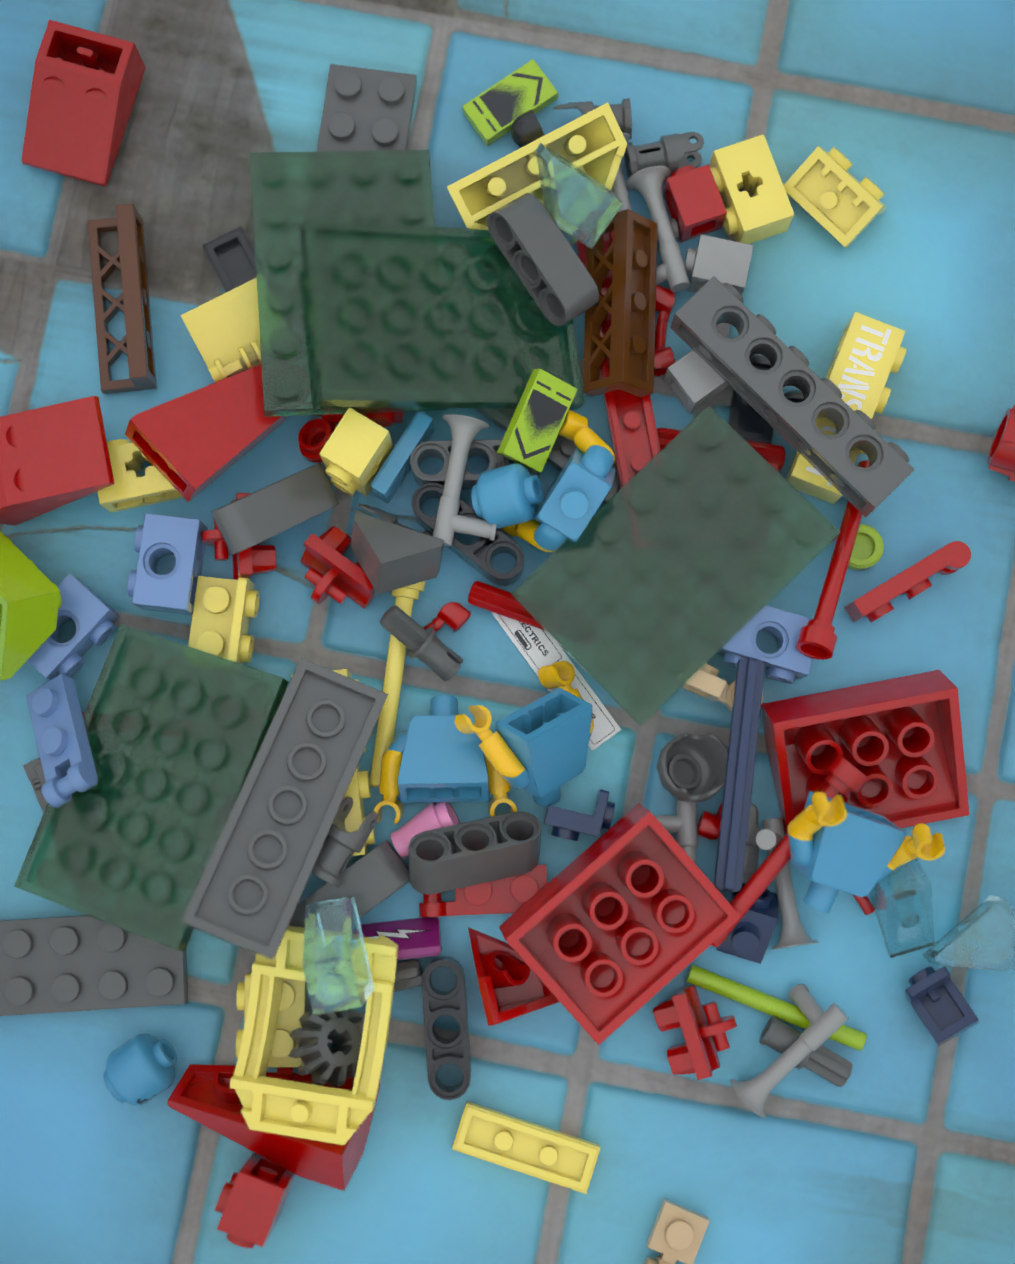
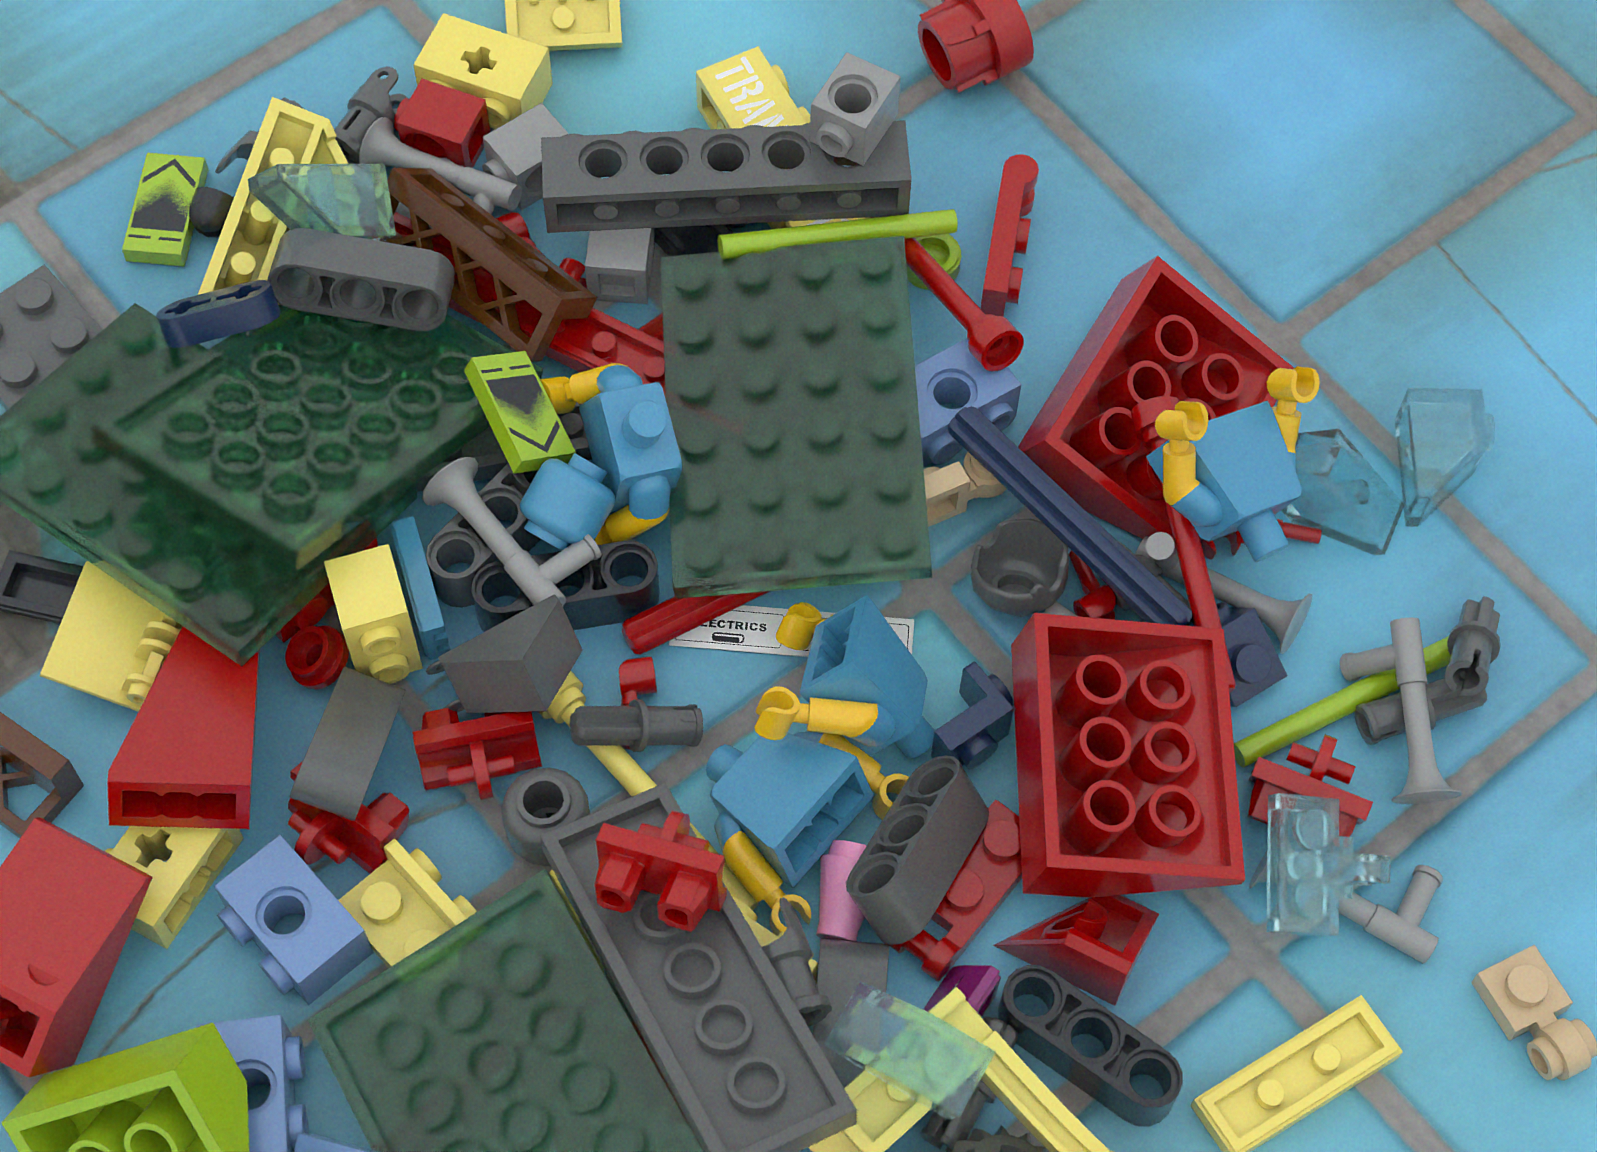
camera: 50 degrees left, 20 degrees down
(312, 725) = (661, 863): none -> red hips
(324, 627) = (538, 804): none -> dark grey head
(448, 207) = (218, 314): none -> dark blue beam
(644, 1072) = (1312, 866): none -> clear light blue hinge
(657, 1140) = (1397, 928): none -> light grey piece
(815, 490) = (904, 225): none -> lime bar
(865, 1057) = (1473, 646): none -> dark grey axle
(901, 426) = (854, 109): none -> light grey brick
(939, 1004) = (1472, 539): dark blue bracket -> none

